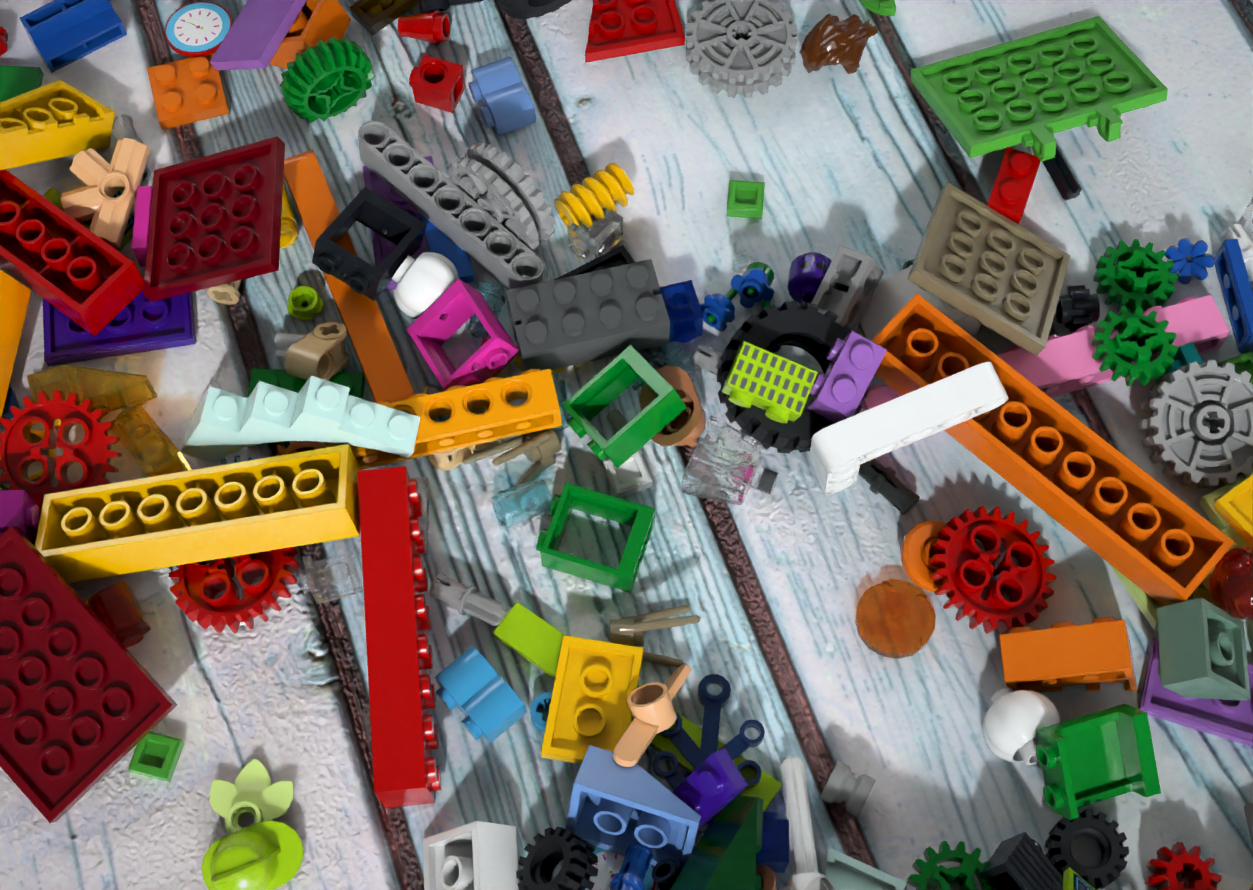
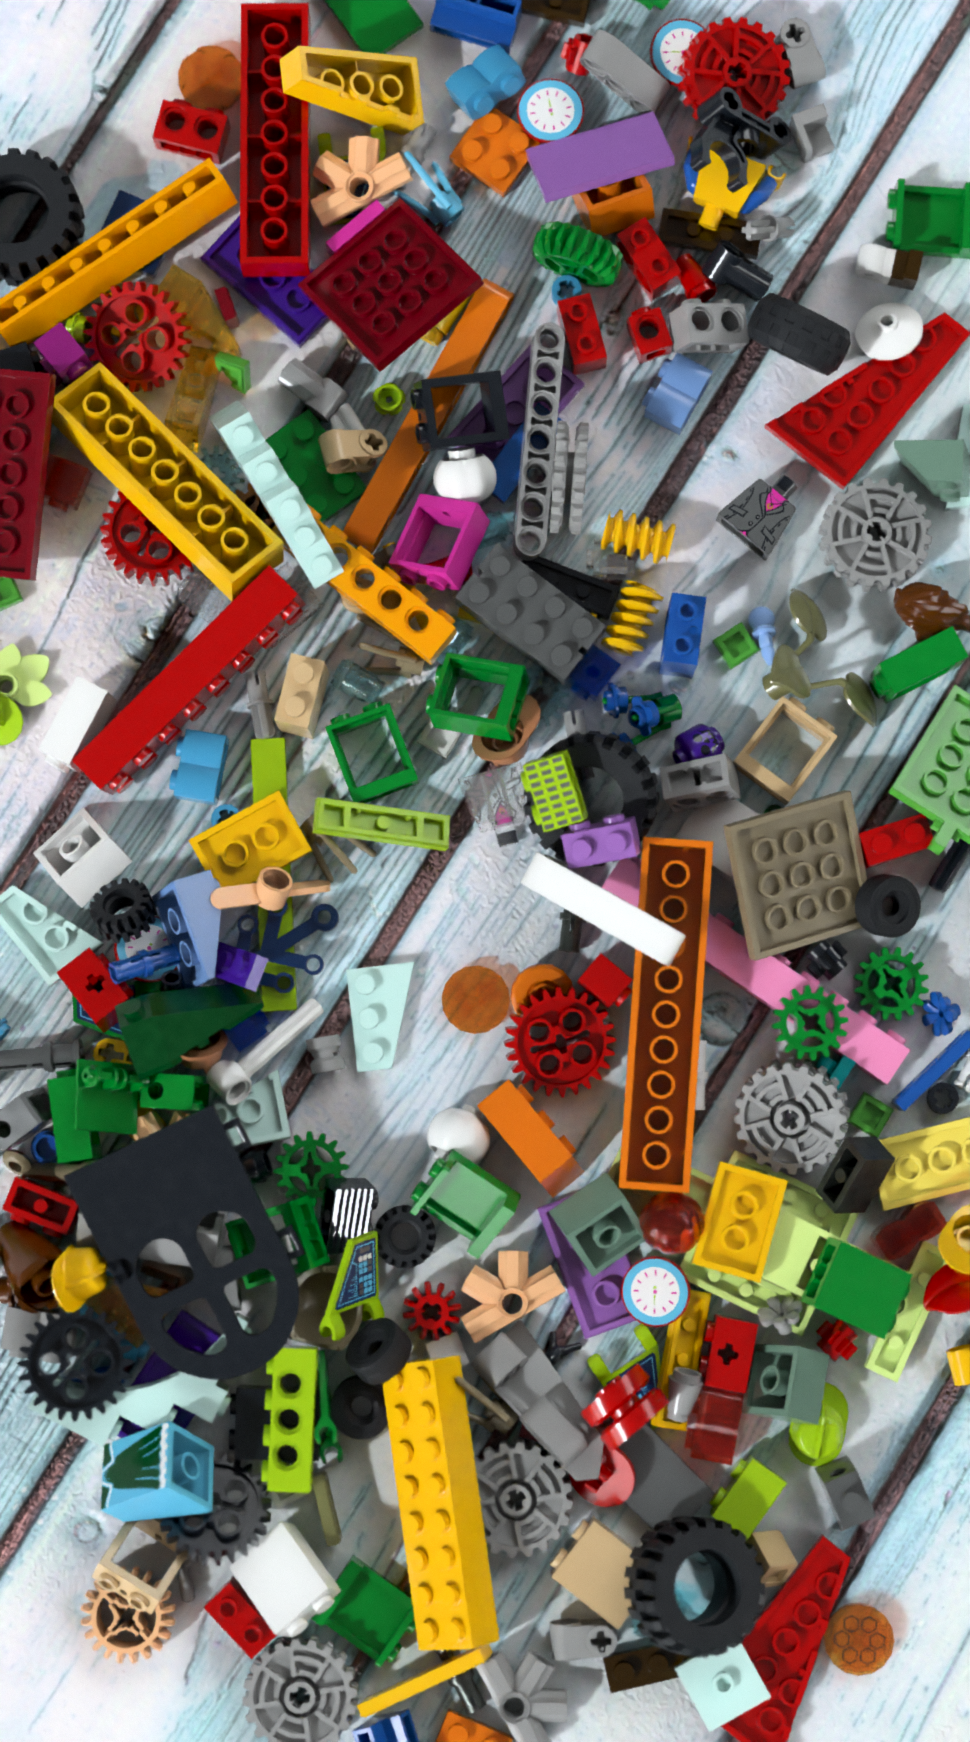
camera: 55 degrees right, 20 degrees up
(102, 361) = (227, 307): none -> dark red tile
(130, 53) = (485, 82): none -> dark azure brick
(163, 400) = (235, 369): none -> bright green tile
(190, 147) = (445, 205): none -> medium azure plant
(248, 351) = (319, 394): none -> light grey piece
(339, 113) = (565, 280): none -> dark azure bush
(343, 772) = (76, 724): none -> white brick
(385, 40) = (648, 259): none -> red brick
(406, 121) = (582, 334): none -> red brick
(472, 35) = (709, 333): none -> light grey brick
(496, 547) = (302, 696): none -> tan brick
(652, 240) = (631, 618): none -> yellow piece
(656, 107) = (760, 514): none -> dark grey torso
(668, 572) = (381, 824): none -> lime plate
(708, 219) = (682, 635): none -> blue window
(745, 169) = (762, 623): none -> light blue bar
(808, 175) = (788, 674): none -> olive plant
(841, 714) = (377, 1012): none -> light aqua wing
(870, 183) = (762, 776): none -> tan window
(877, 75) = (917, 665): none -> green window
(967, 484) = (606, 982): none -> red brick
(1065, 231) = (905, 909): none -> black tyre
(1202, 805) = (493, 1290): none -> light nougat piece

